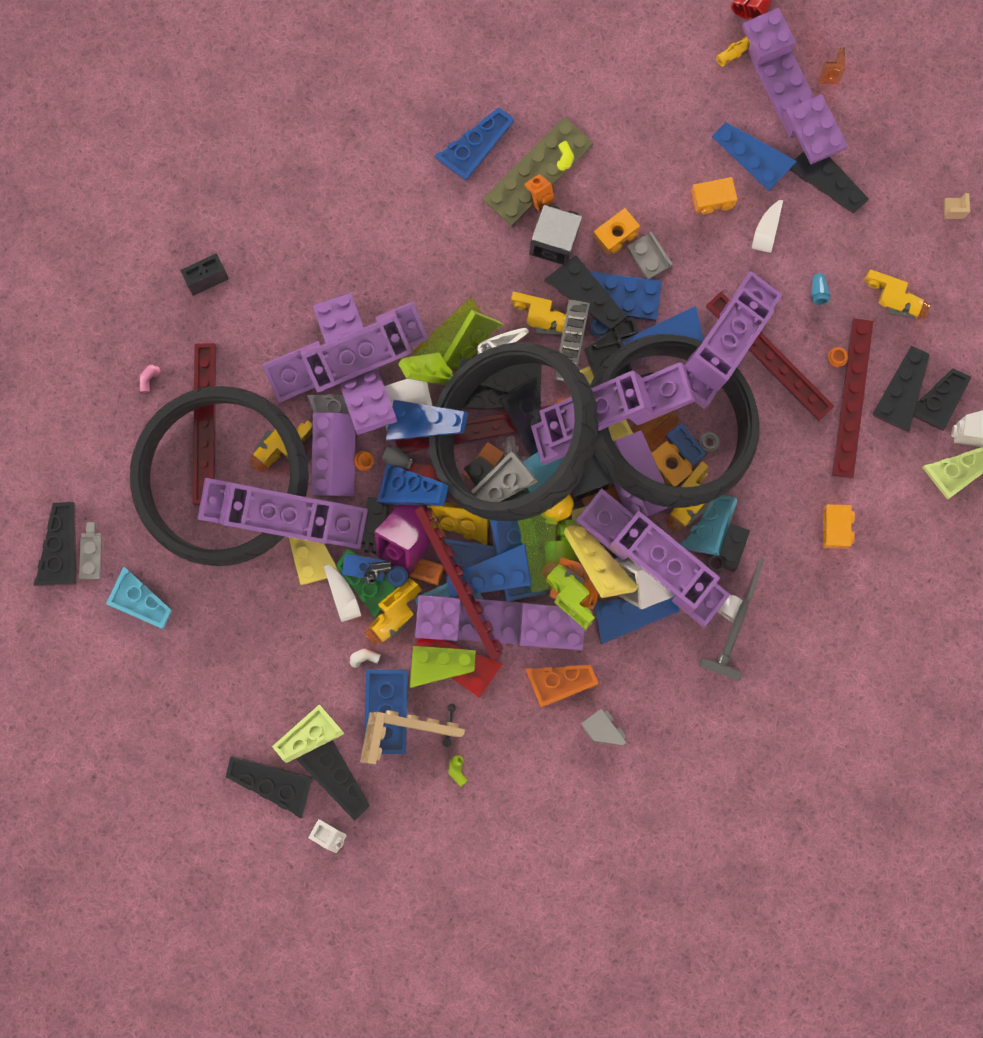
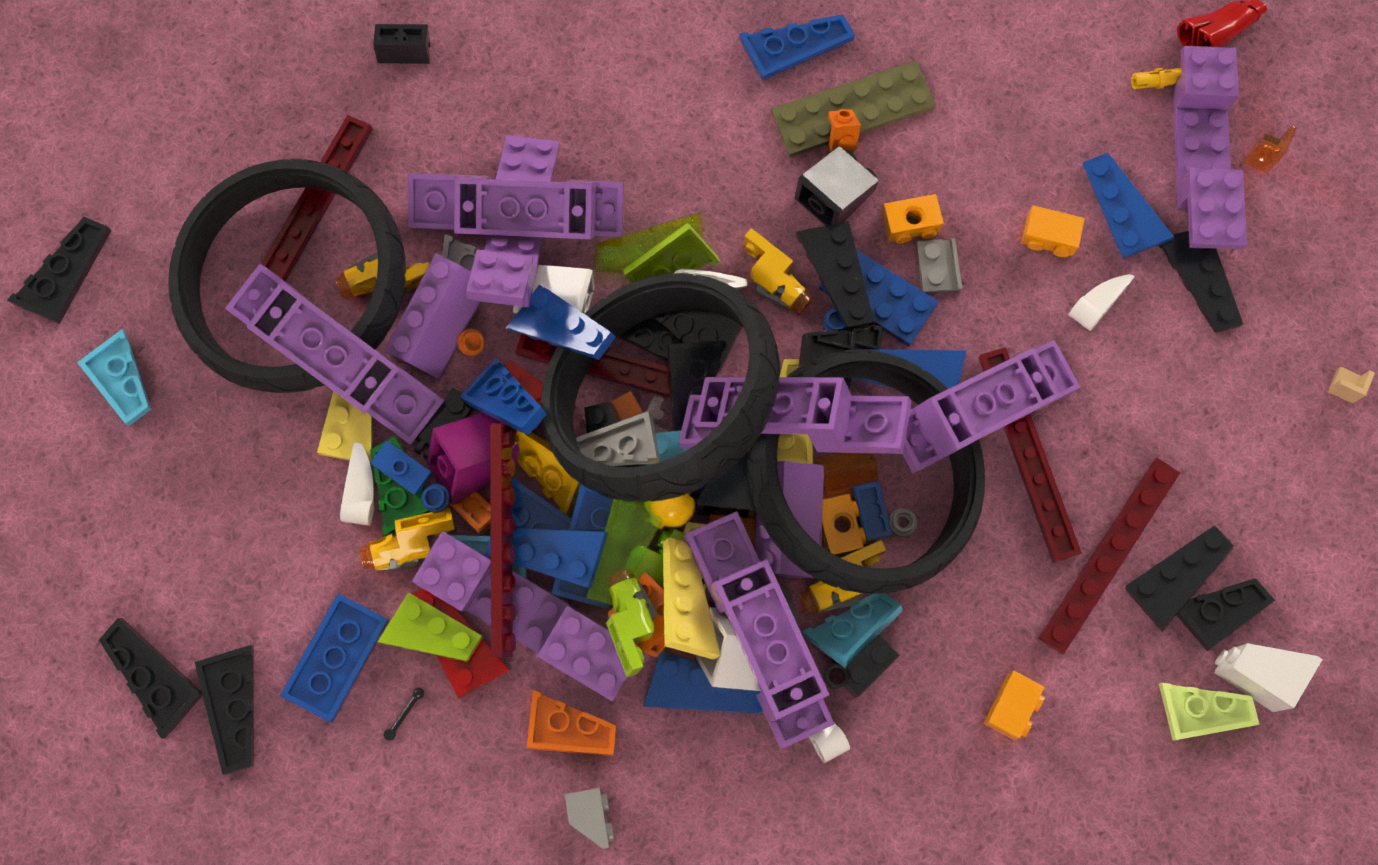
camera: 25 degrees right, 5 degrees down
(90, 553) = (95, 296): light grey hinge -> none
(145, 377) = (273, 126): bright pink arm -> none
(308, 735) = (224, 639): yellowish green wing -> none
(327, 836) = (180, 778): white bracket -> none
(363, 655) = (345, 574): white arm -> none
(374, 570) = (409, 476): black arm -> none
(376, 731) = (353, 684): tan bracket -> none
(397, 457) = (510, 355): dark grey cone -> none
(426, 368) = (596, 264): lime wing -> none
(455, 769) = (381, 774): lime arm -> none
(567, 156) = (895, 105): neon yellow arm -> none
(573, 332) = (800, 309): tile -> none
(722, 664) = (781, 809): dark grey piece -> none
(820, 292) = (1130, 404): dark azure cone -> none
(837, 357) = (1114, 495): orange plate -> none
(895, 298) = (1221, 456): yellow plate -> none

